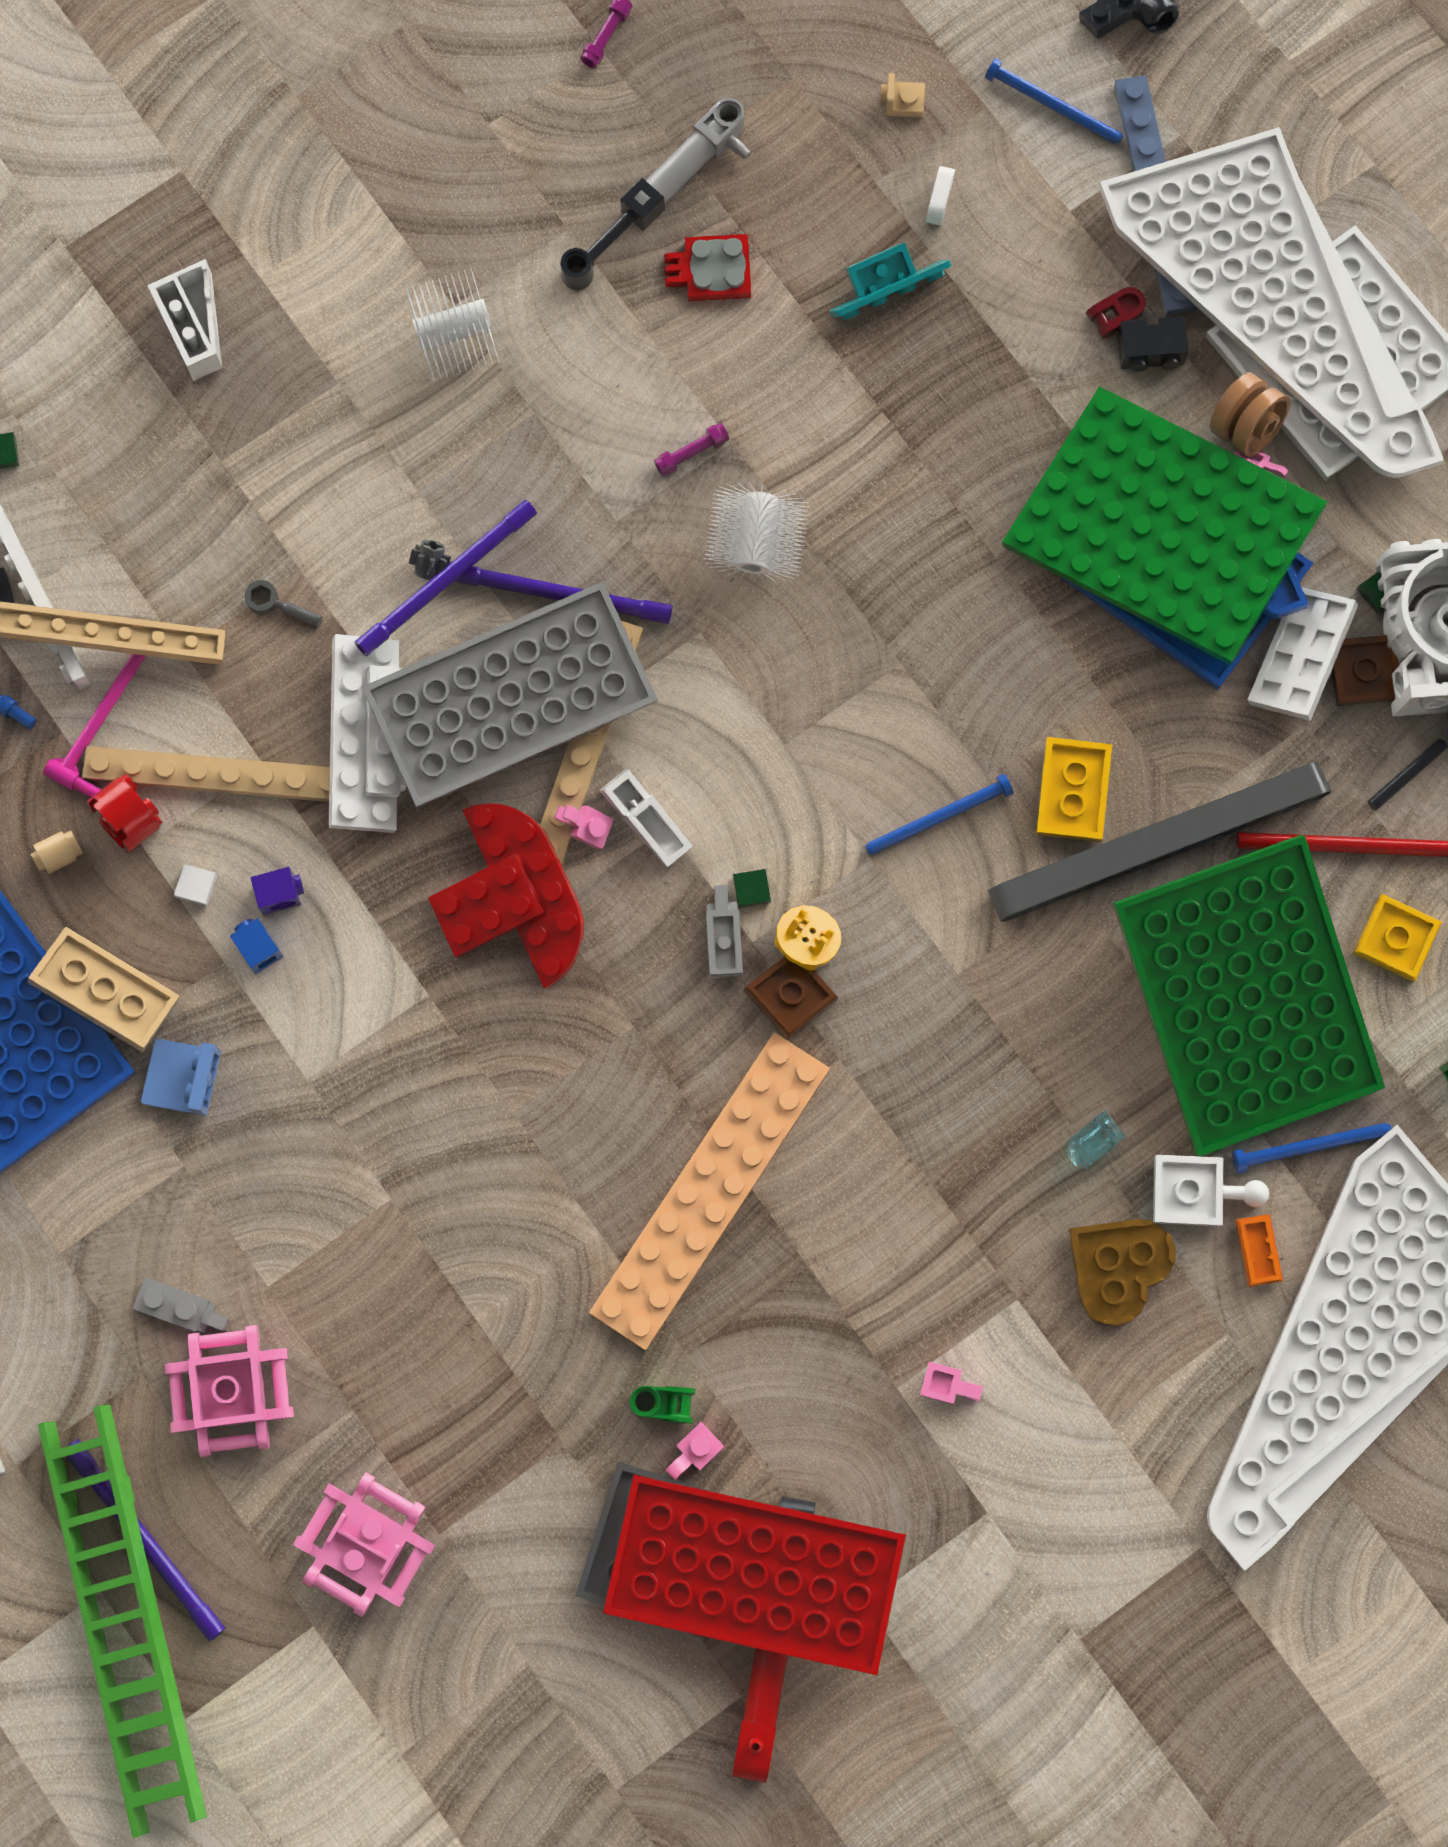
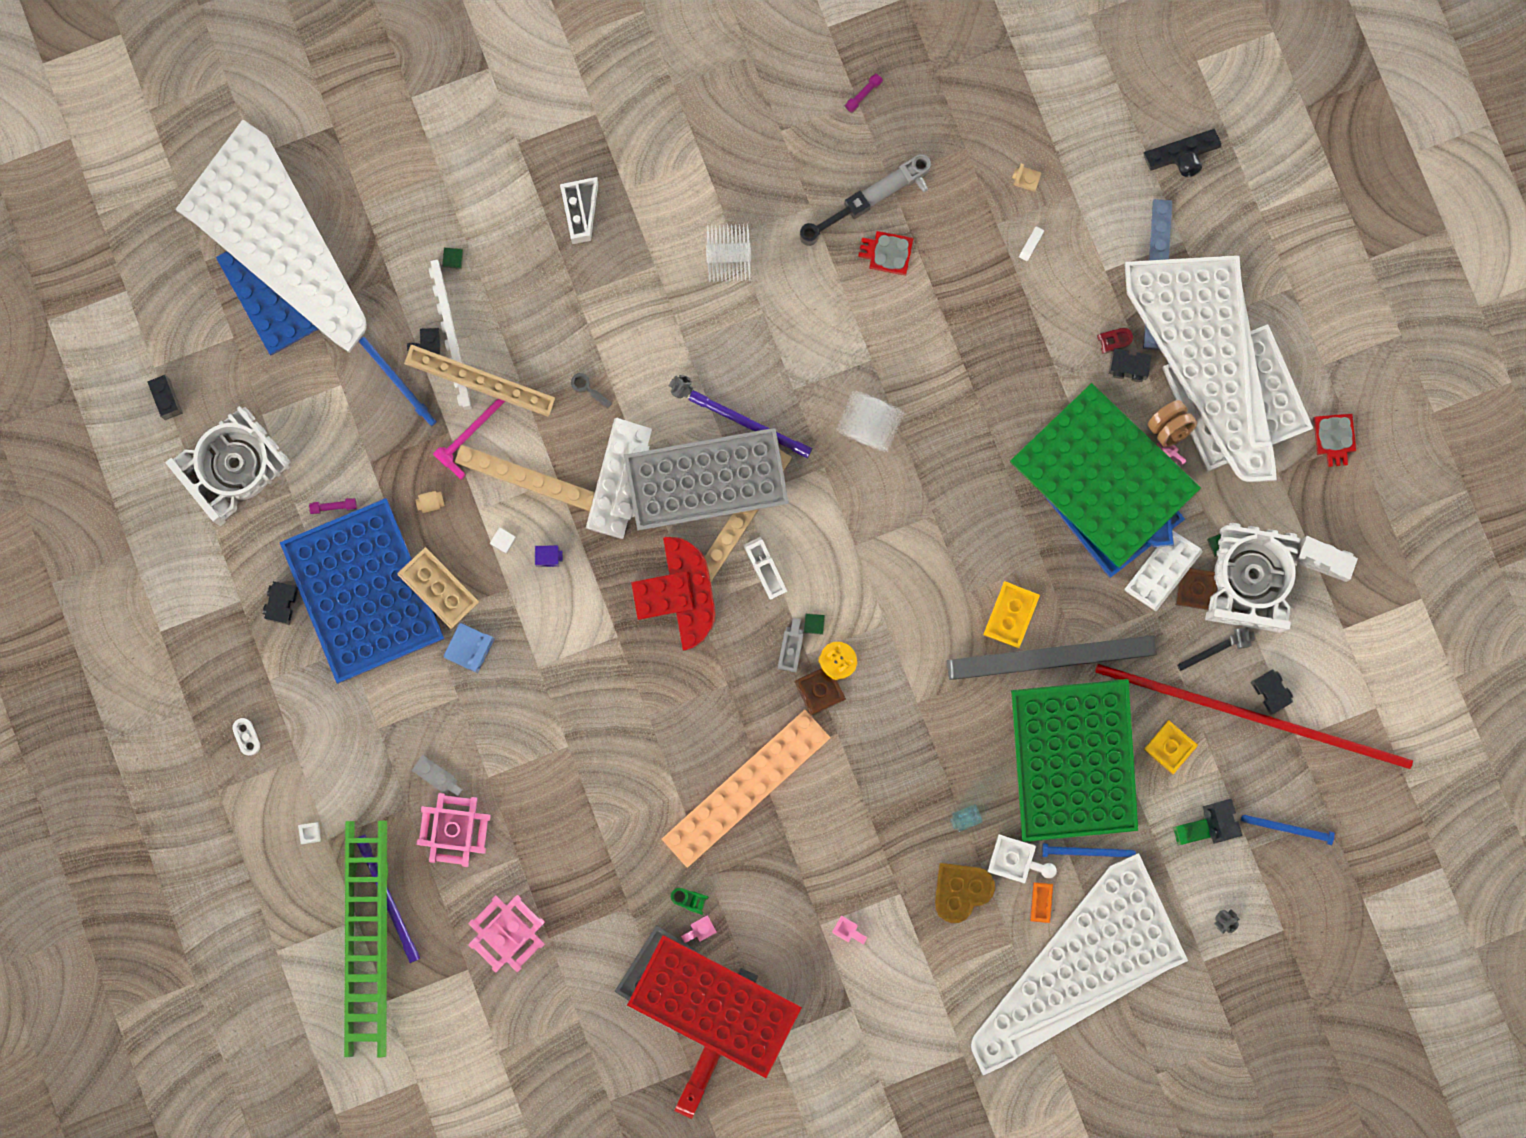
camera: 15 degrees right, 5 degrees up
(124, 813) = (473, 490): red brick -> none
(255, 945) = (528, 584): blue brick -> none
(381, 631) = (643, 423): dark purple piece -> none
(587, 823) = (731, 563): bright pink plate -> none
(667, 462) = (831, 363): magenta bar -> none
(882, 275) = (986, 284): teal bracket -> none
(1002, 786) = (932, 610): blue bar -> none
(1052, 102) = (1112, 202): blue bar -> none

